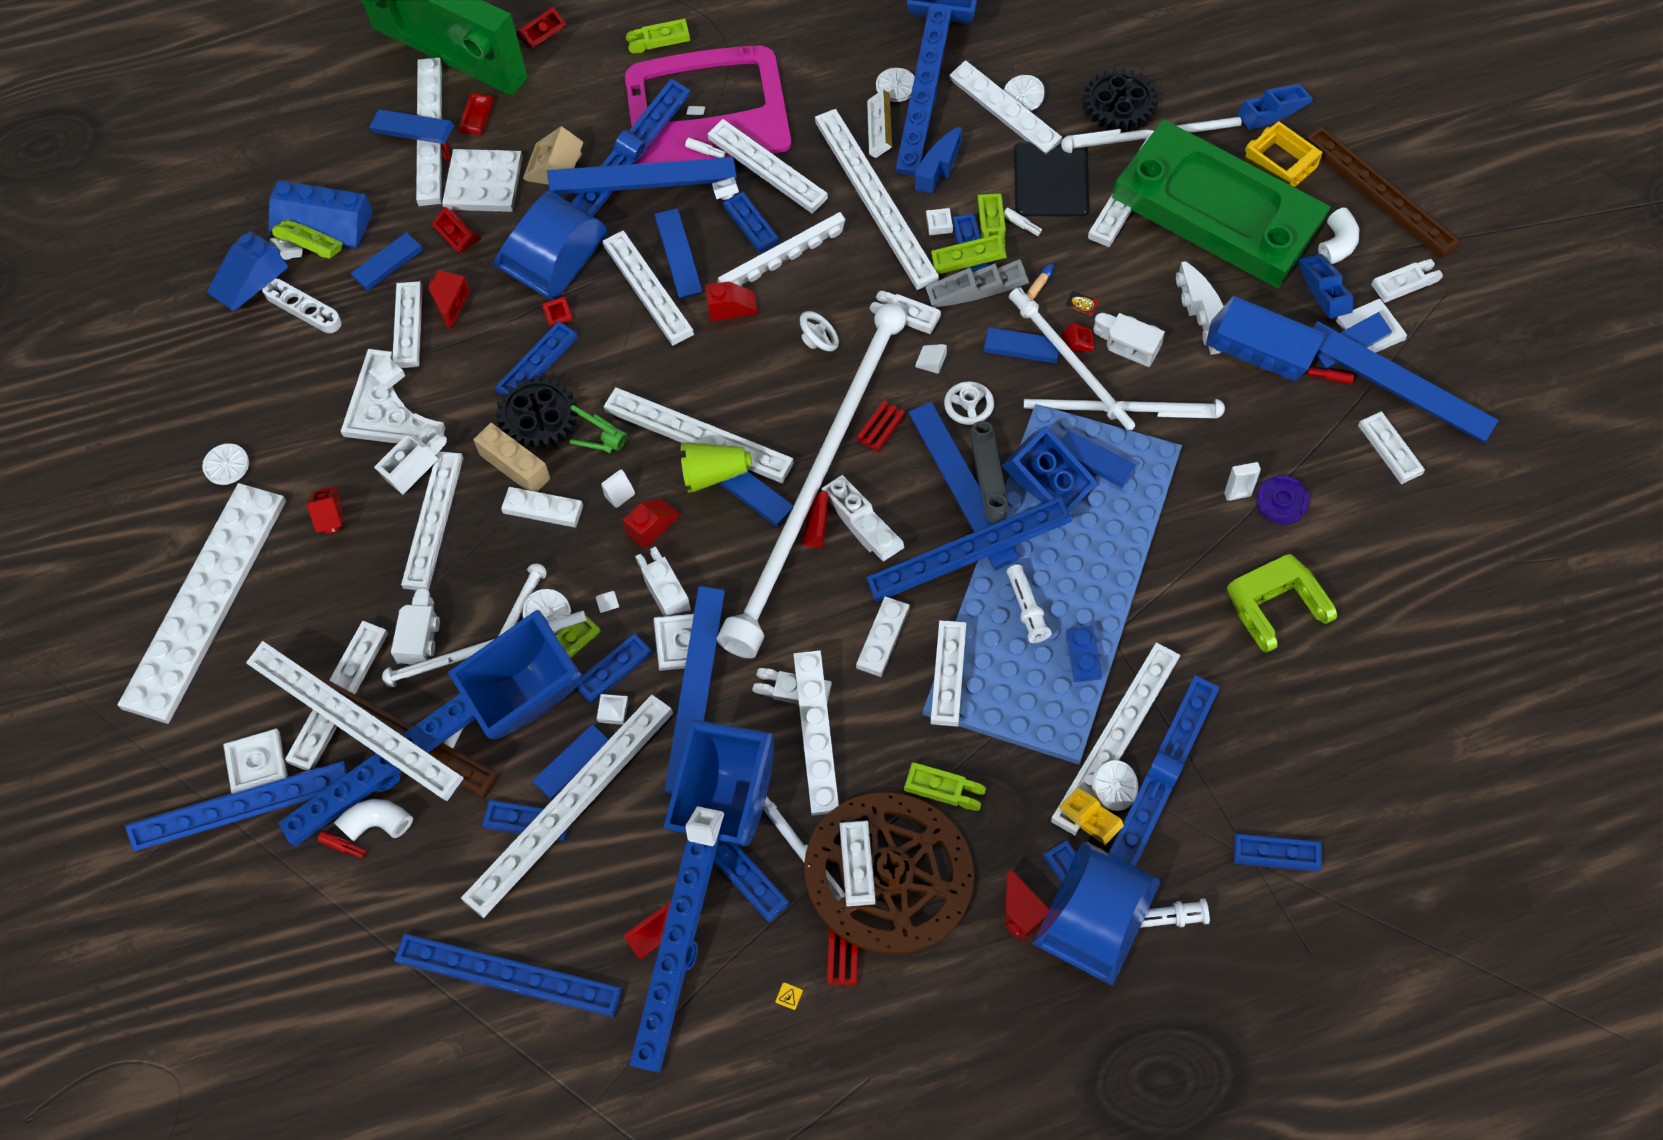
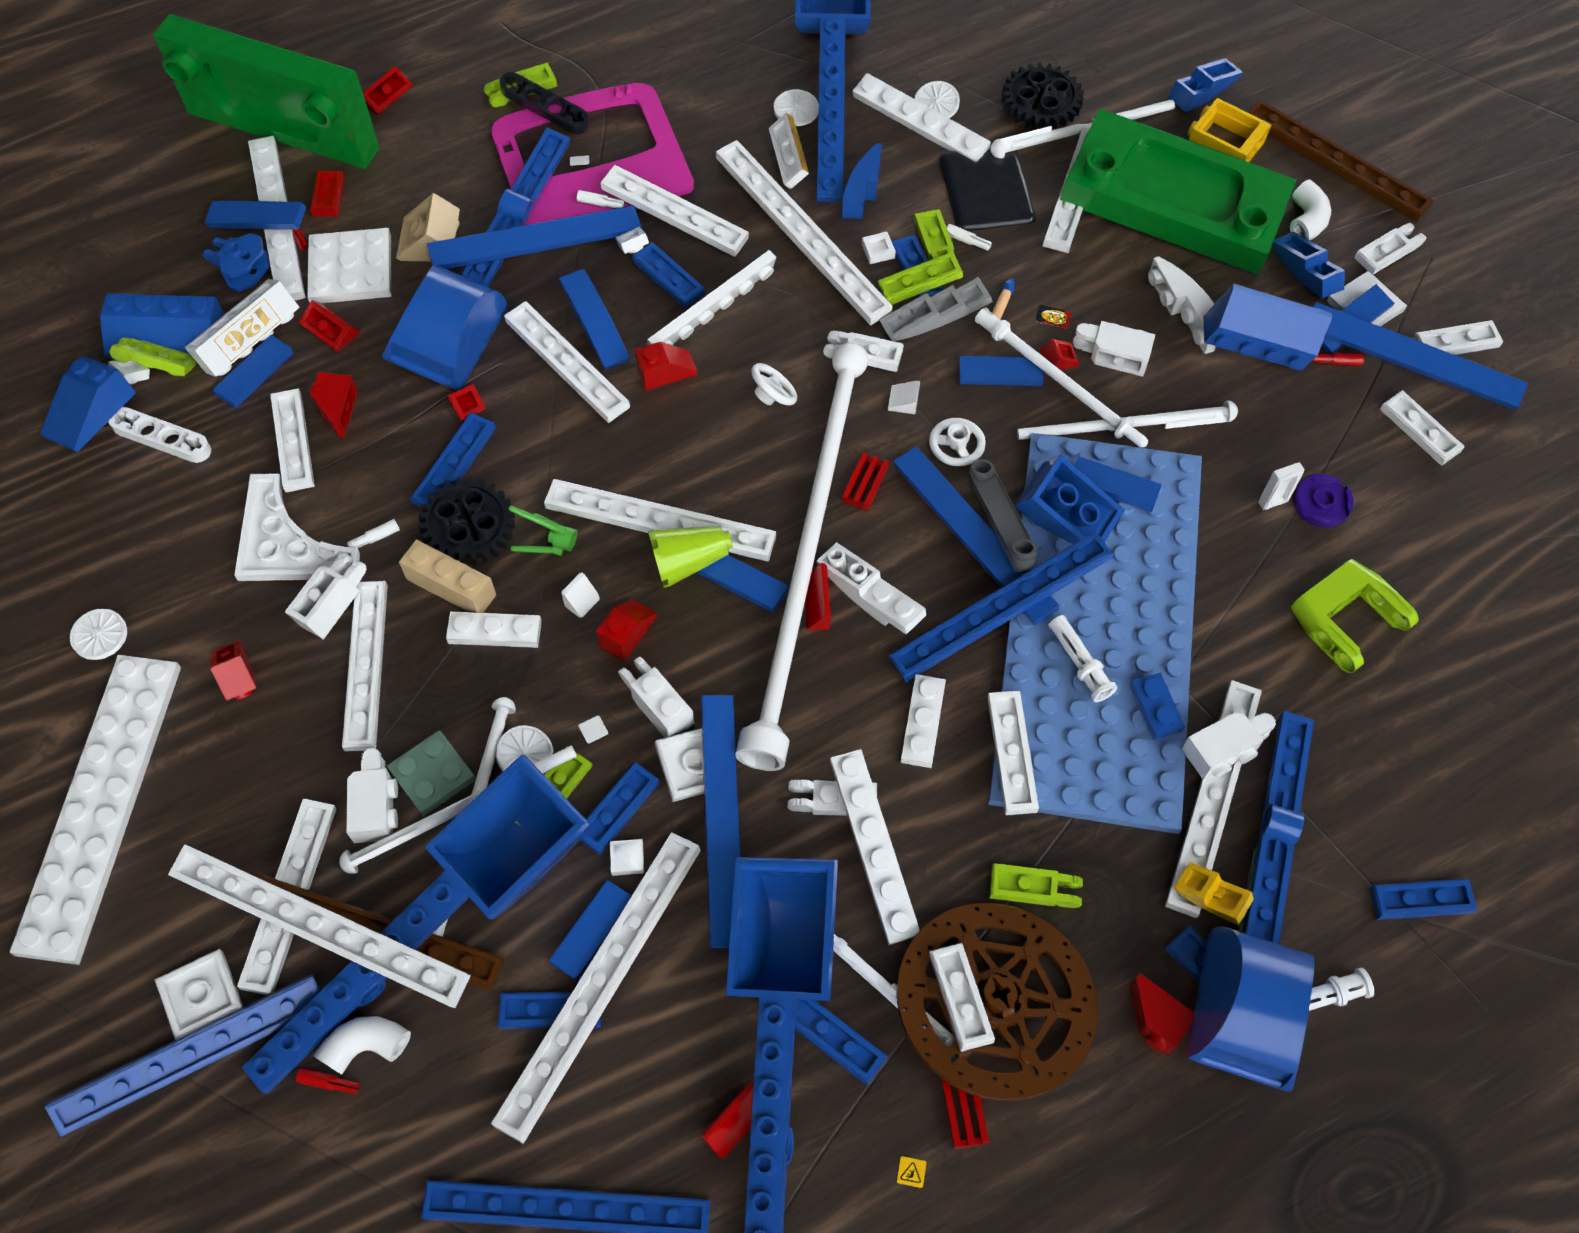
camera: 15 degrees left, 0 degrees up
(384, 223) = (242, 328): none -> white brick
(386, 373) = (278, 499): white plate -> none
(390, 163) = (237, 259): none -> blue hinge
(460, 413) = (375, 534): none -> white piece
(468, 616) = (431, 773): none -> sand green plate
(674, 55) = (546, 100): none -> black beam
(704, 826) = (779, 986): white slope -> none
(1115, 785) = (1228, 852): white wheel -> none
(1135, 693) = (1227, 742): none -> white hinge
(1451, 371) = (1462, 338): none -> white tile

